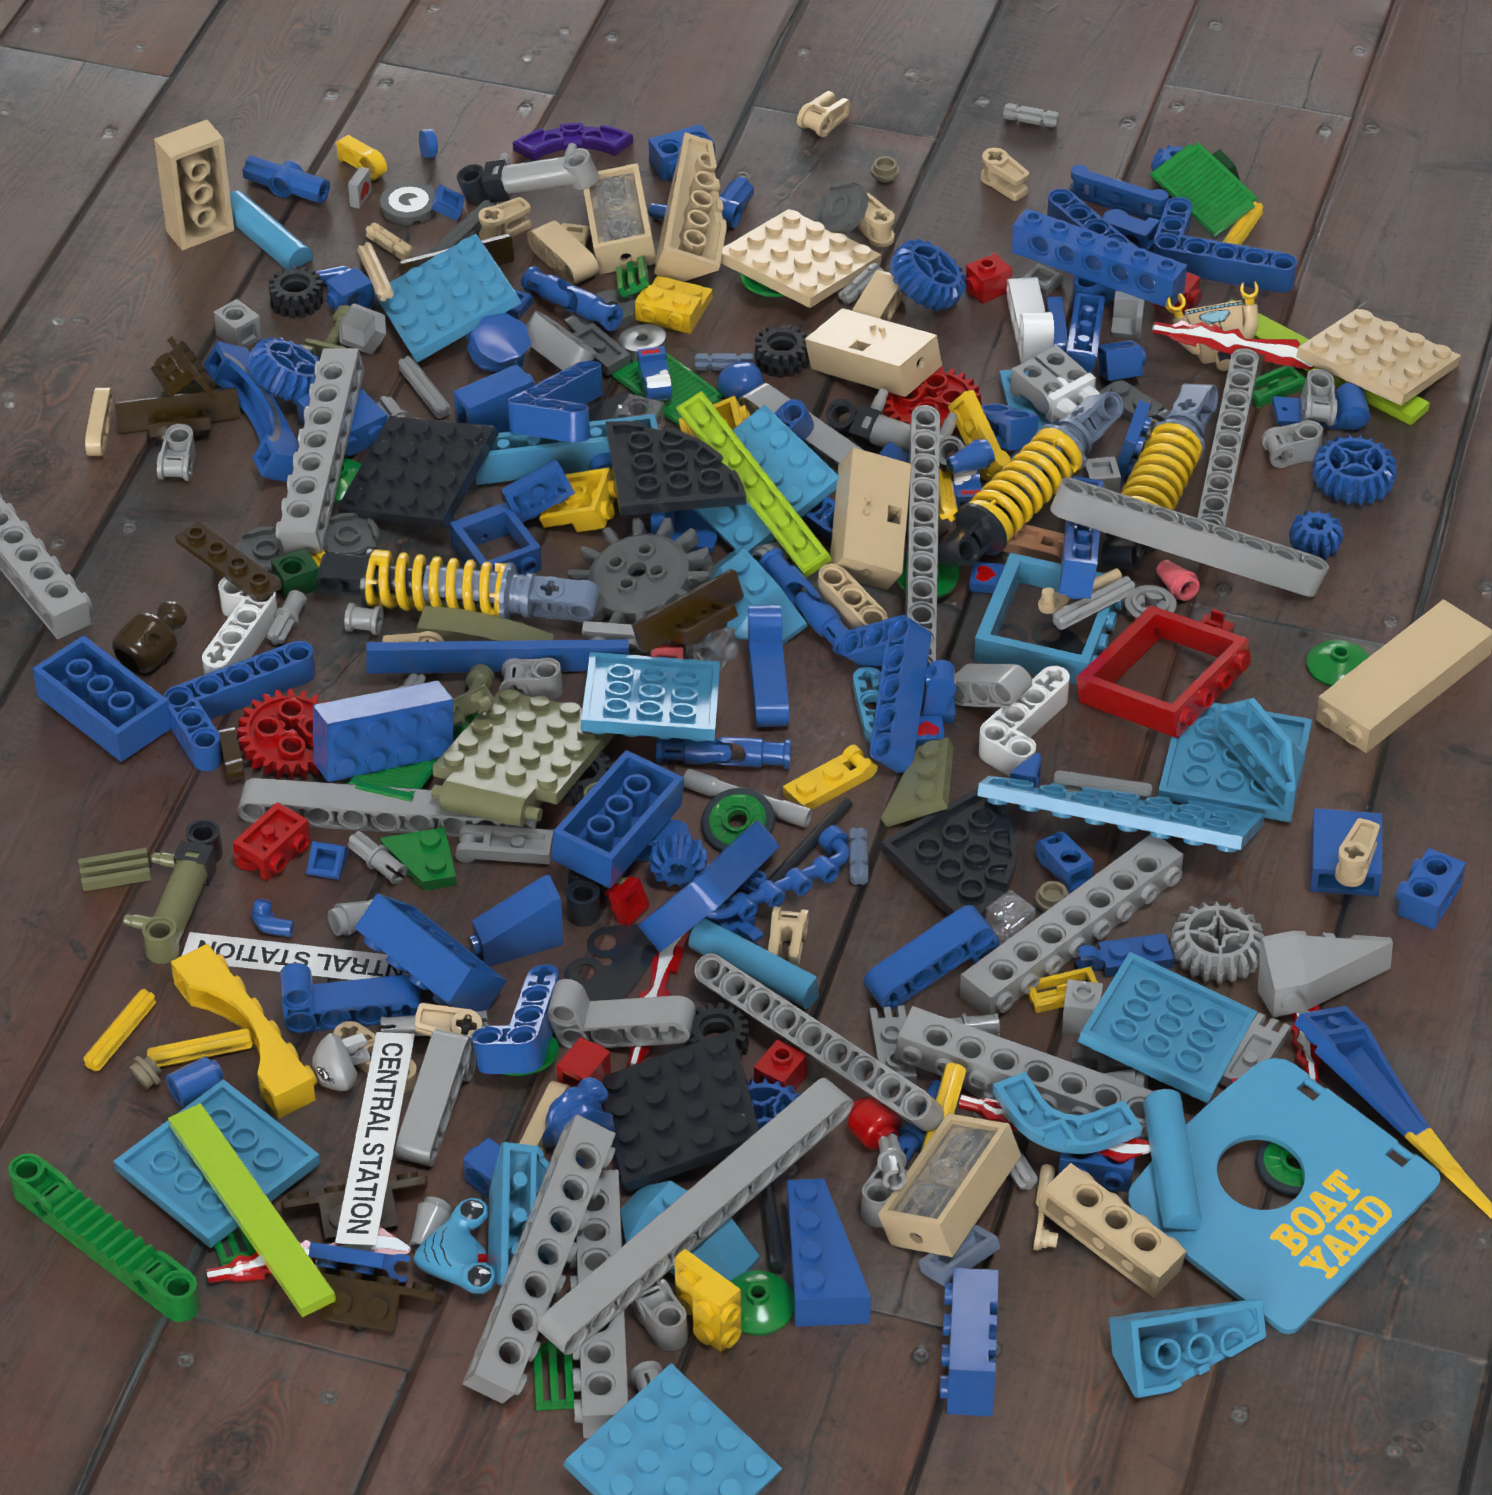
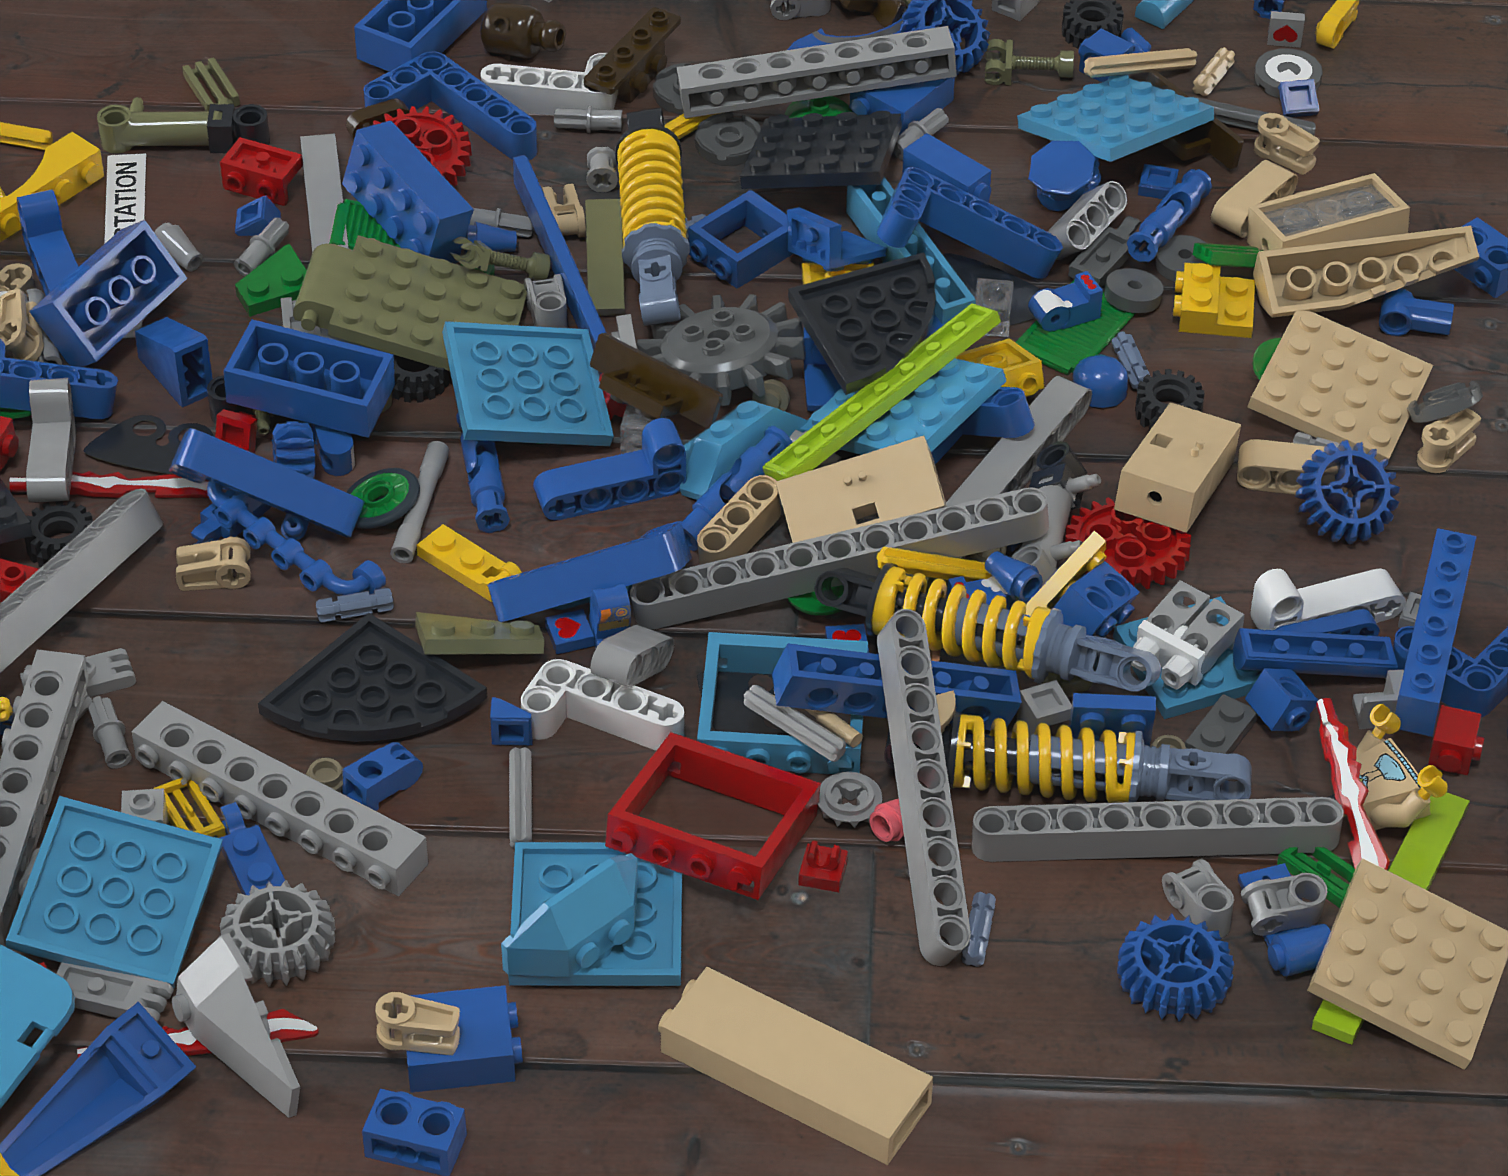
camera: 75 degrees right, 0 degrees up
(267, 922) = (164, 194): blue arm -> none
(295, 572) = (647, 97): dark green brick -> none
(362, 328) = (1044, 75): light grey panel -> none
(424, 387) = (992, 138): light grey axle -> none
(428, 143) = (1391, 63): blue tile -> none
(501, 180) = (1343, 124): light grey piece -> none
(541, 142) = (1476, 172): dark purple tile -> none
(763, 966) = (158, 556): dark azure brick -> none
(811, 840) = (354, 559): black bar -> none
(931, 956) = (196, 680): blue beam -> none
(987, 278) = (1391, 552): red brick -> none
(1009, 915) = (270, 733): clear brick -> none
(1195, 821) = (452, 842): dark azure wing -> none
(1316, 534) = (1031, 941): blue gear -> none
(1333, 660) = (834, 1001): green dish -> none

